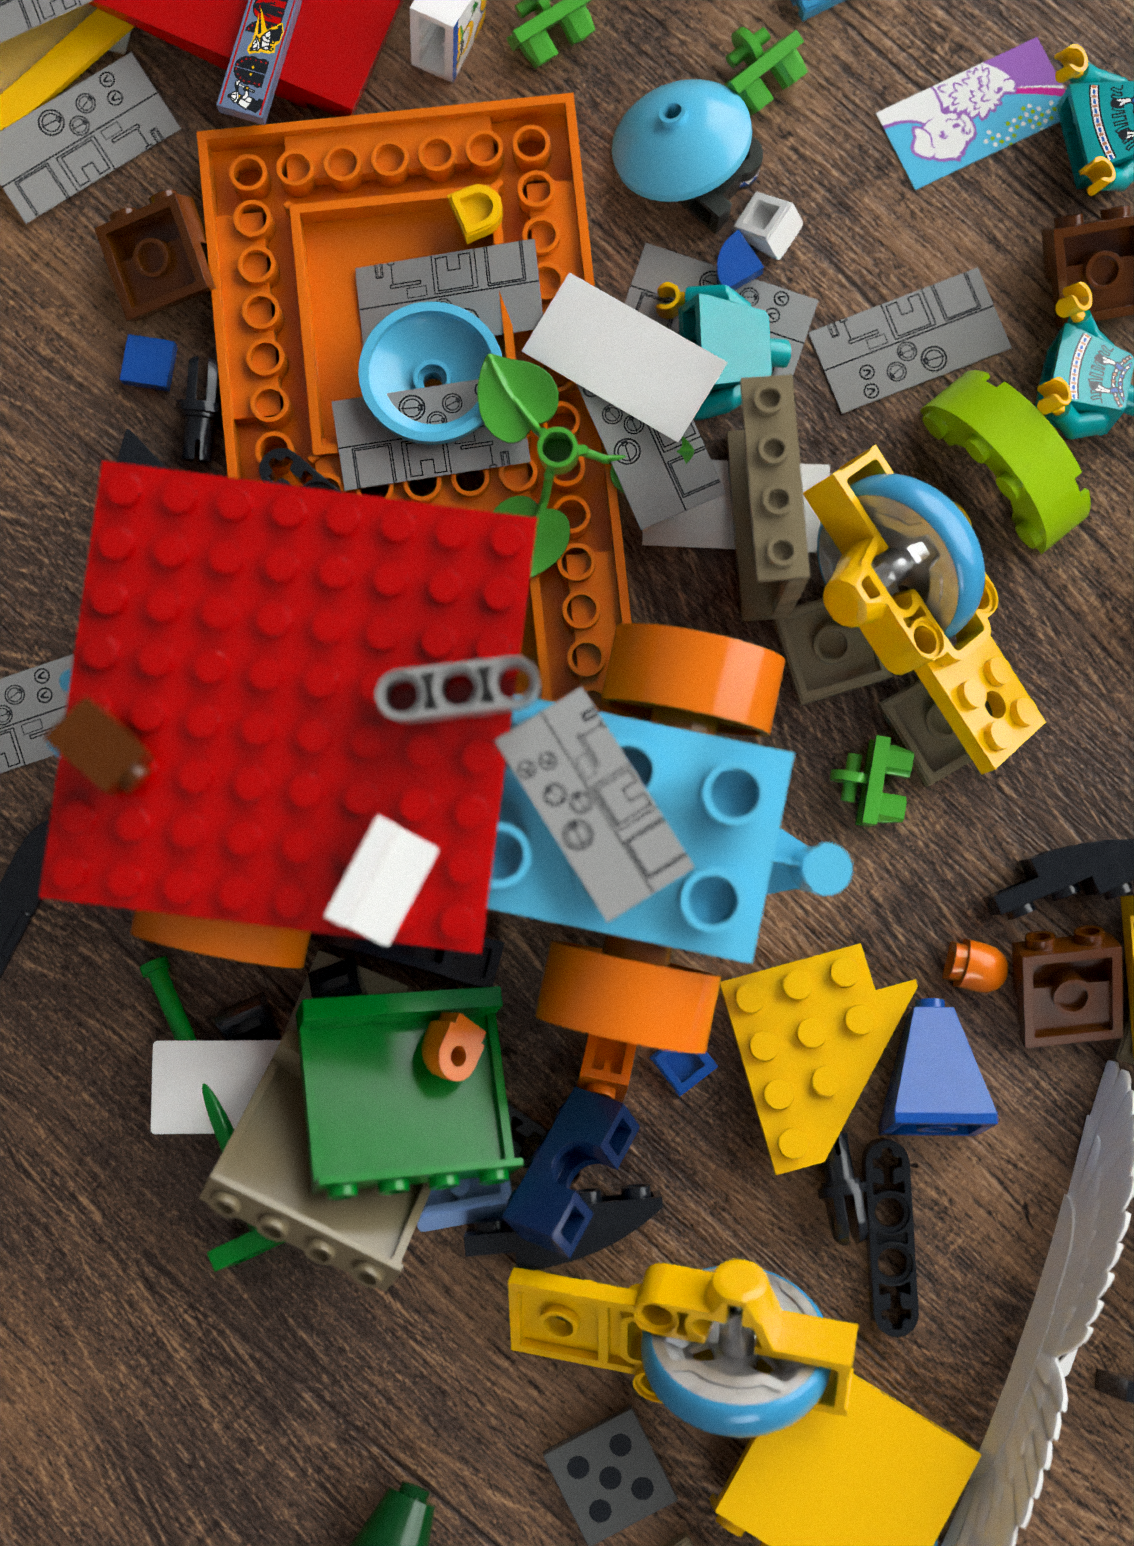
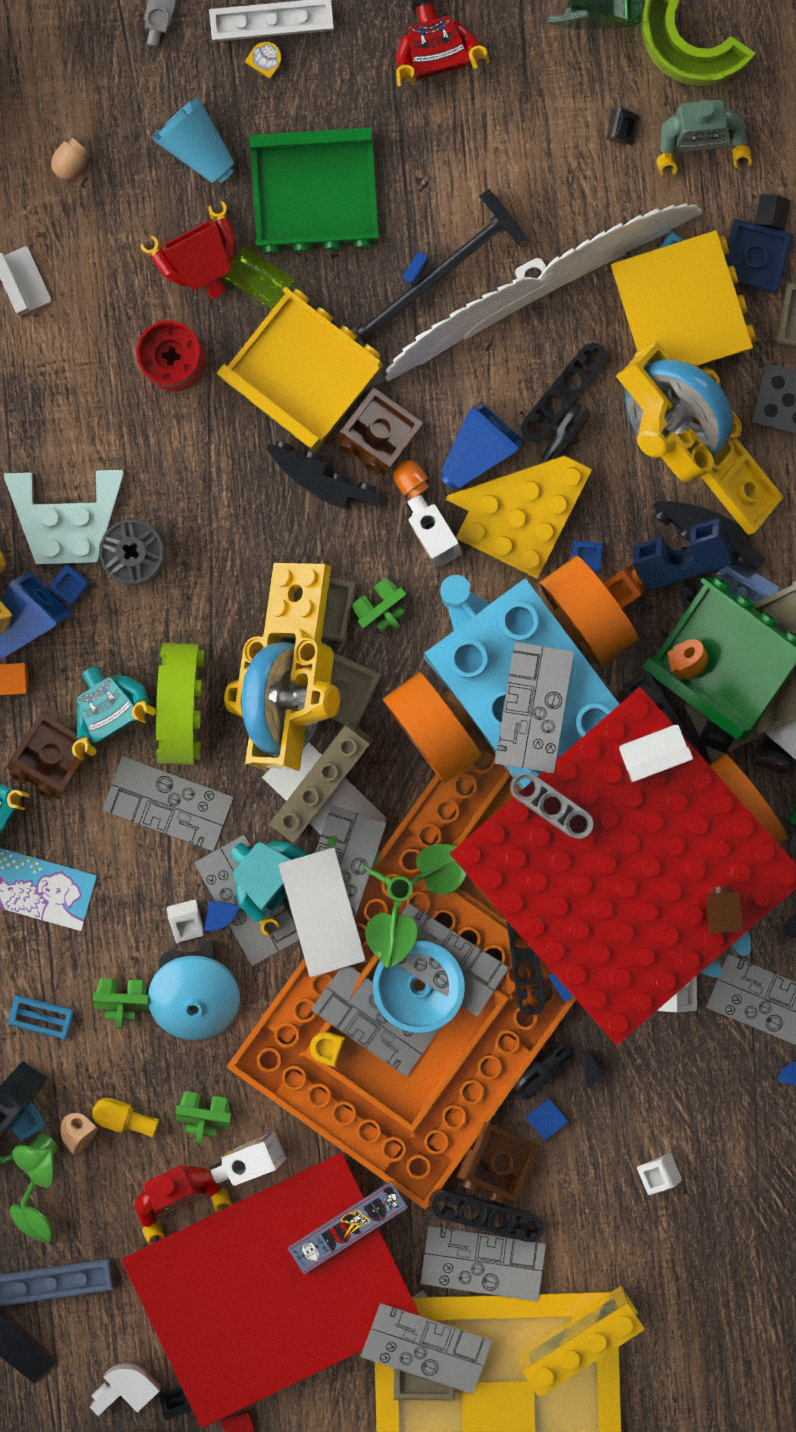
camera: 145 degrees left, 5 degrees up
(118, 180) = (485, 1217): none -> black beam
(895, 924) = (439, 540): none -> white torso

